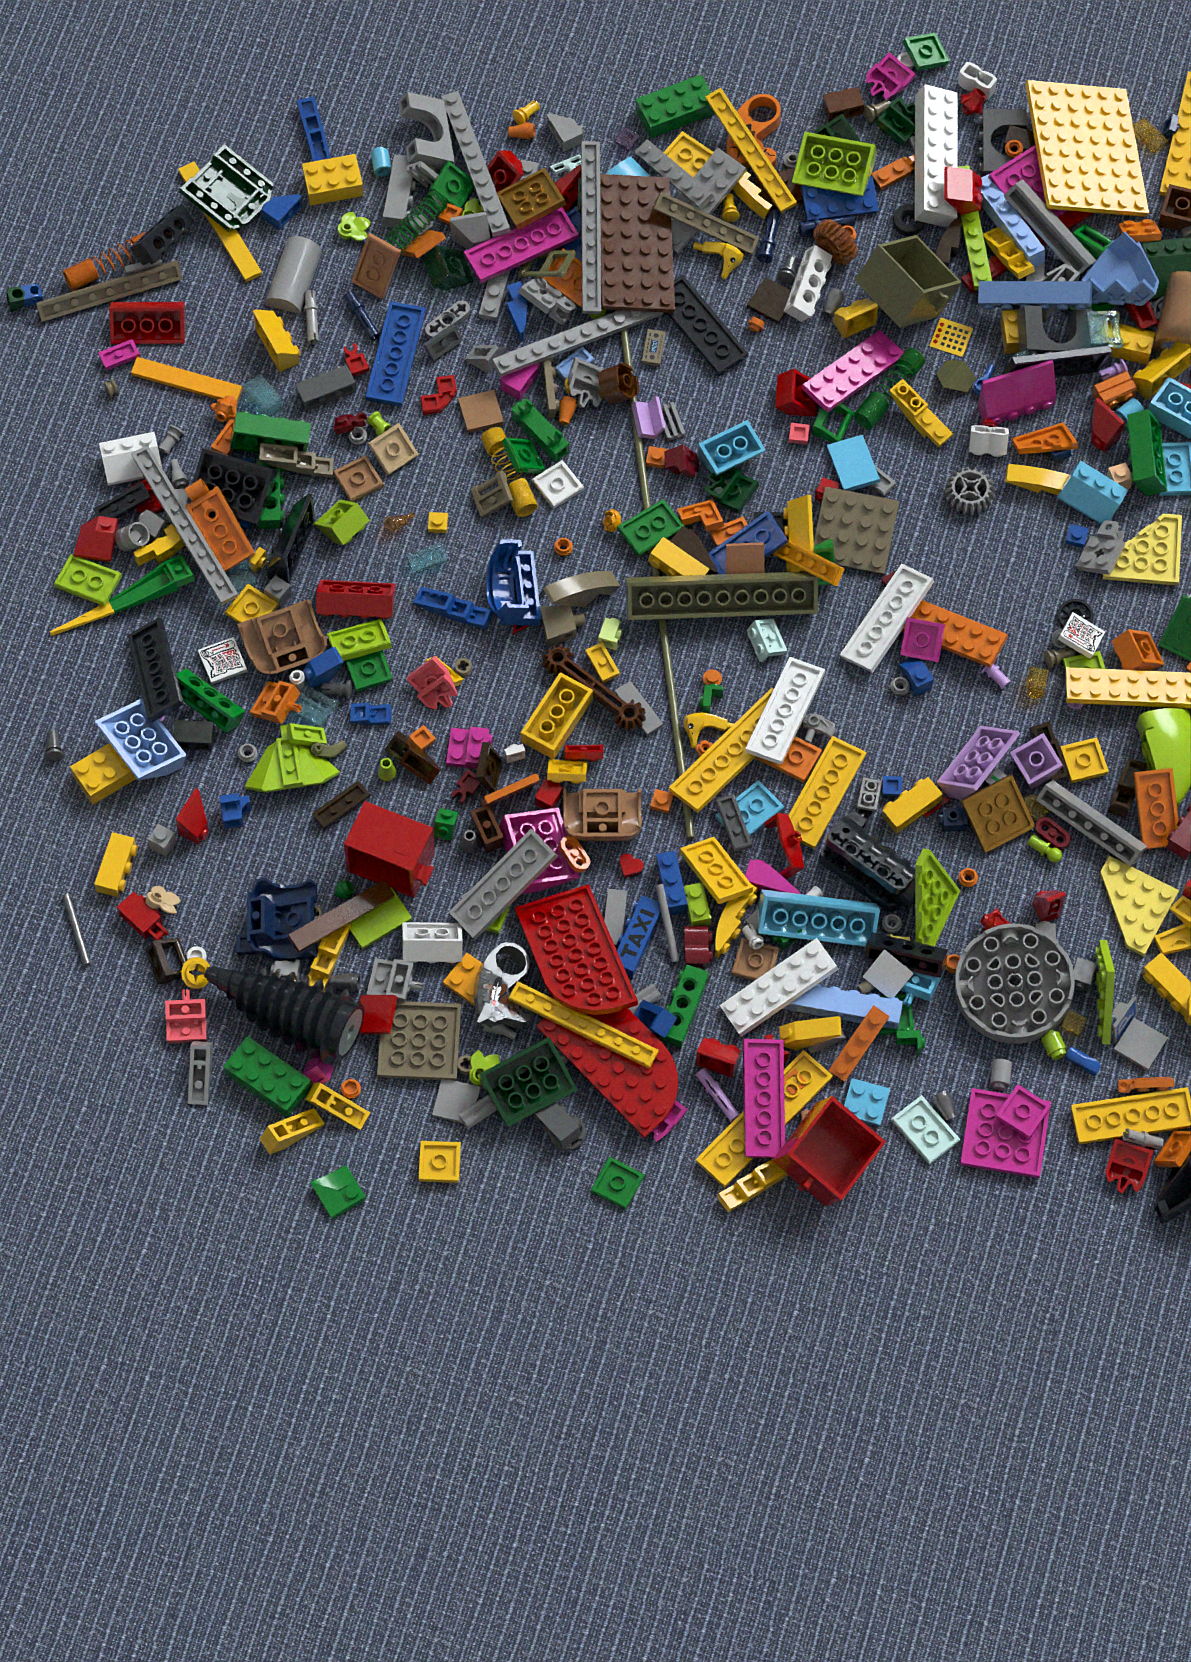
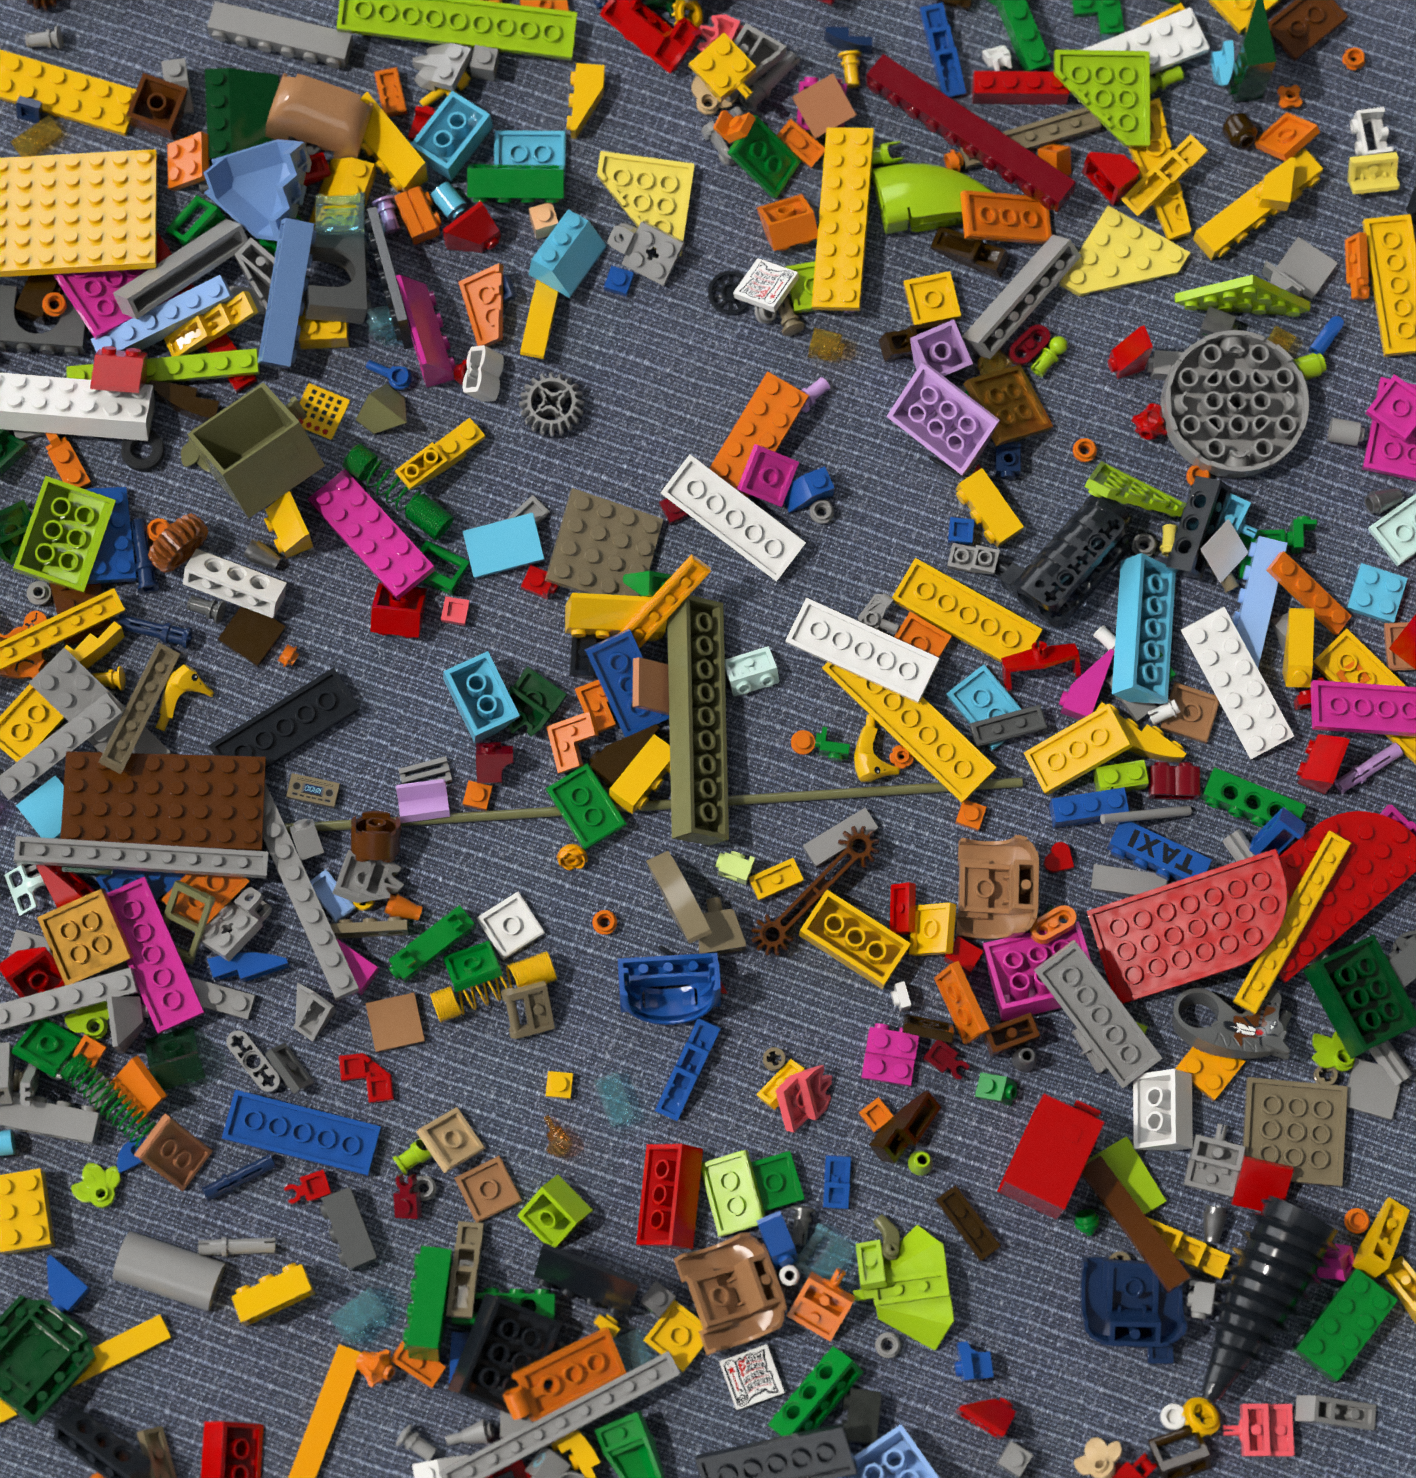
camera: 90 degrees left, 10 degrees up
(614, 341) = (306, 839): none -> light grey brick

